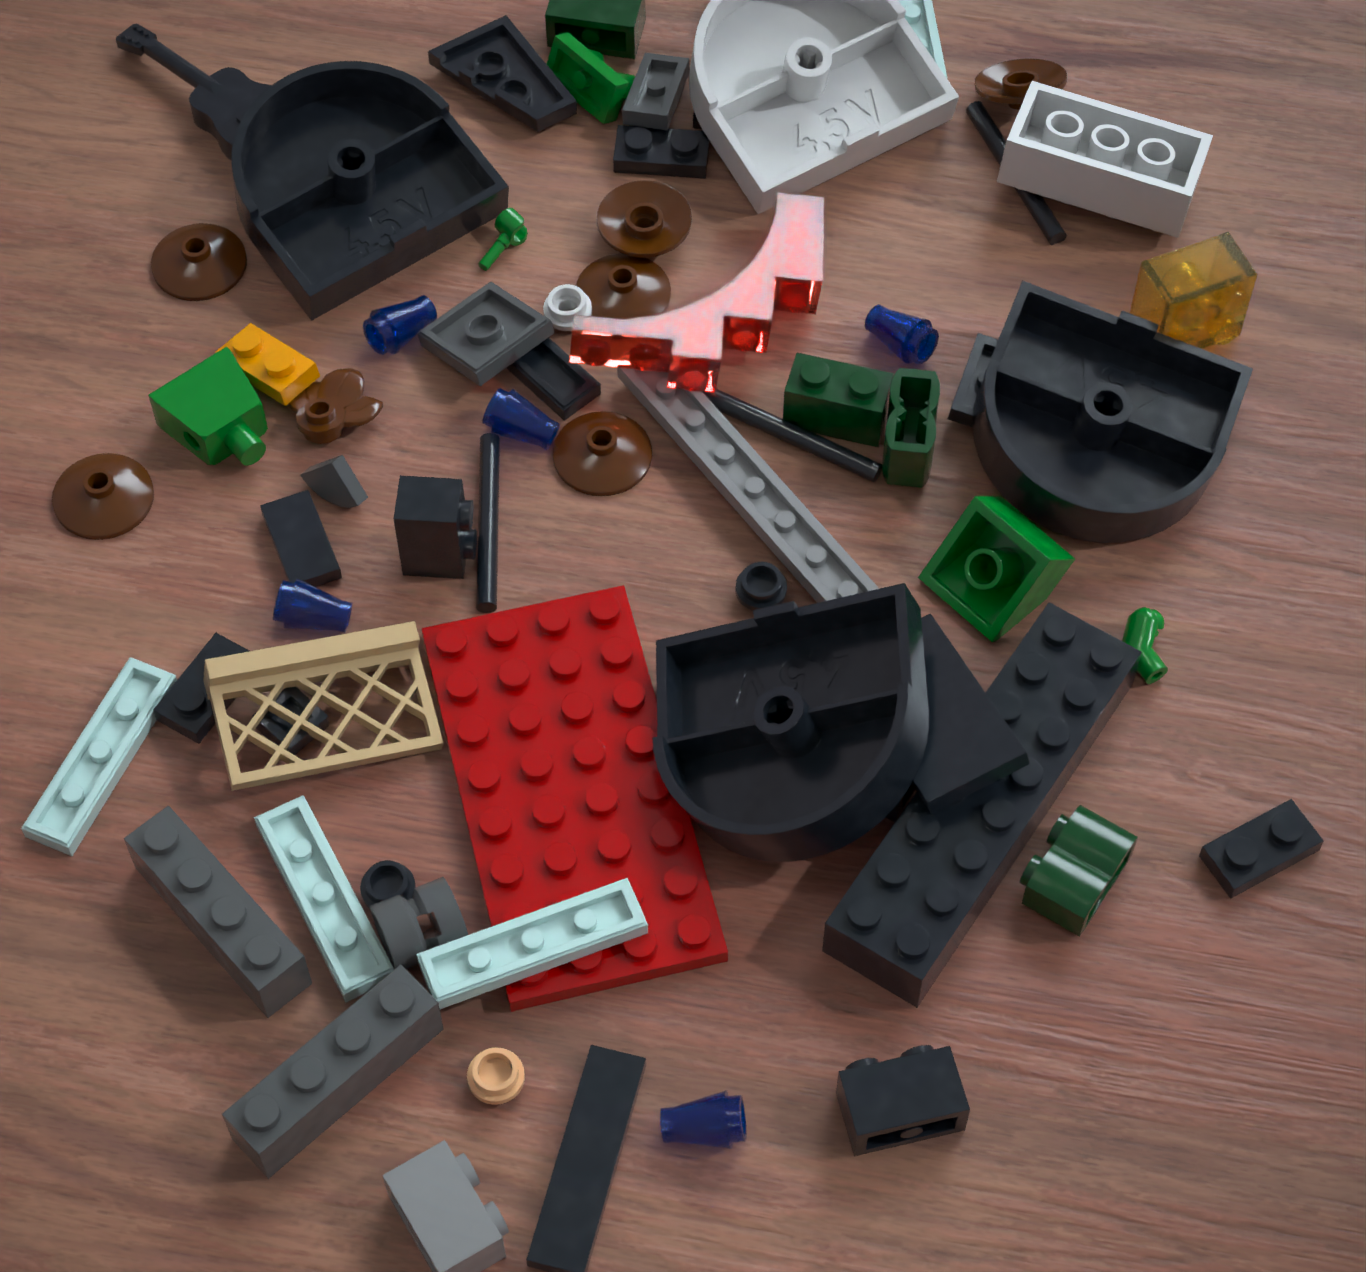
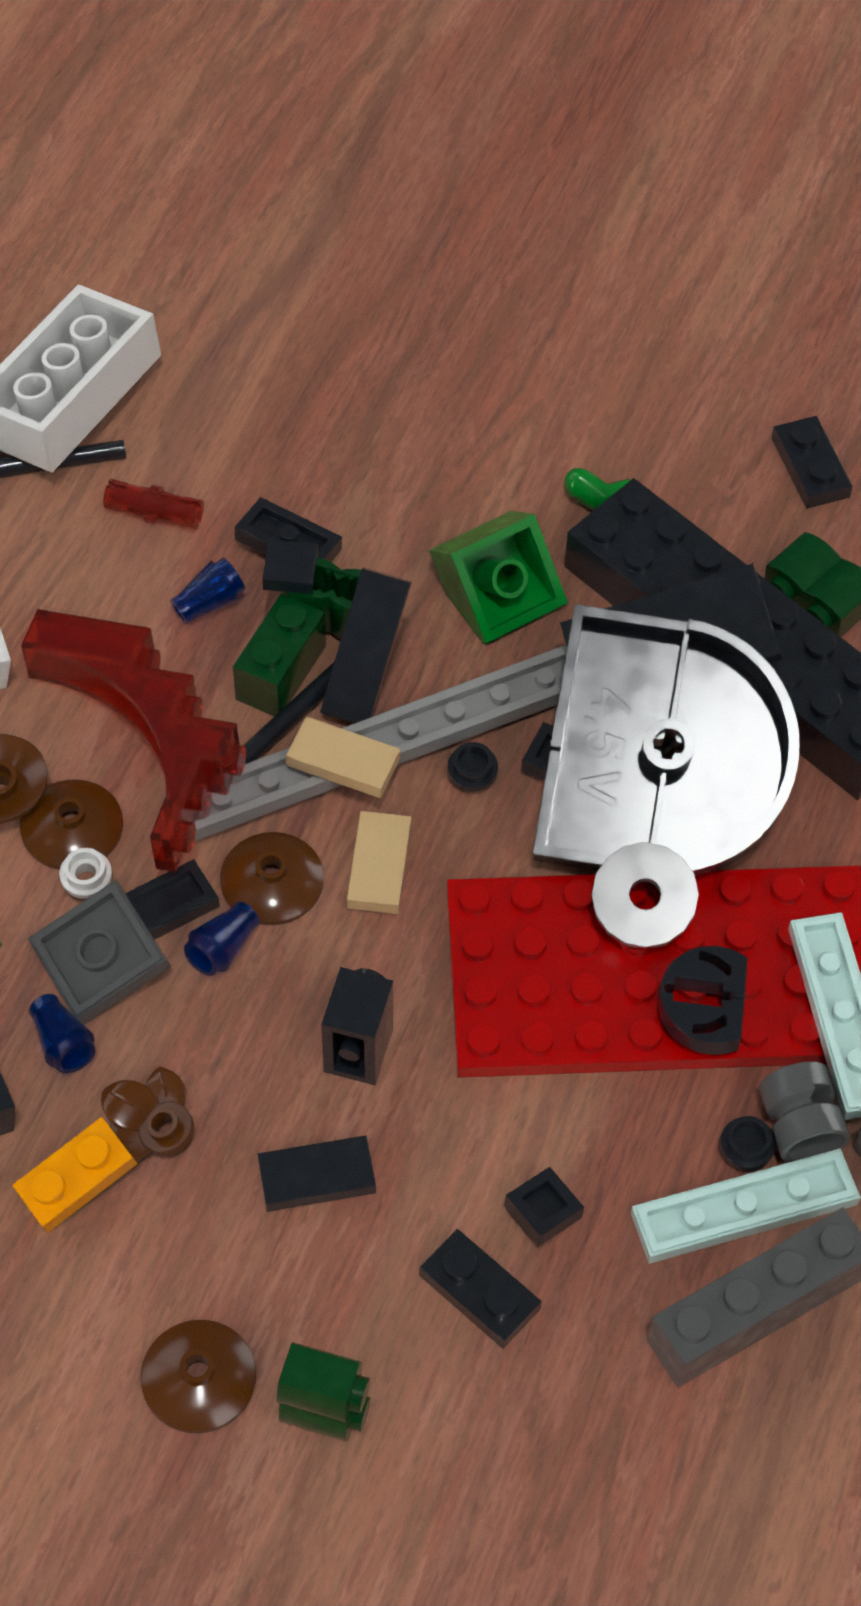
camera: 80 degrees left, 0 degrees up
(72, 564) = (322, 1392): none -> dark green brick
(98, 758) = (542, 1406): light aqua tile -> none
(213, 411) = (131, 1232): green torso -> none
(302, 666) = (494, 1176): tan fence -> none
(310, 608) = (409, 1172): clear blue cone -> none
(335, 482) = (253, 1127): dark grey tile -> none
(488, 523) = (322, 989): black bar -> none
(542, 836) = (711, 972): none -> black piece
(607, 715) = (645, 864): none -> tile
(635, 531) = (379, 862): none -> tan tile
(727, 467) = (343, 757): none -> tan tile
(853, 454) = (365, 646): none -> black tile
(914, 365) = (290, 566): none -> black tile
(994, 272) = (153, 504): none -> clear red pin
(1101, 419) = (361, 456): black piece -> none
(1197, 291) = (257, 352): clear yellow brick -> none

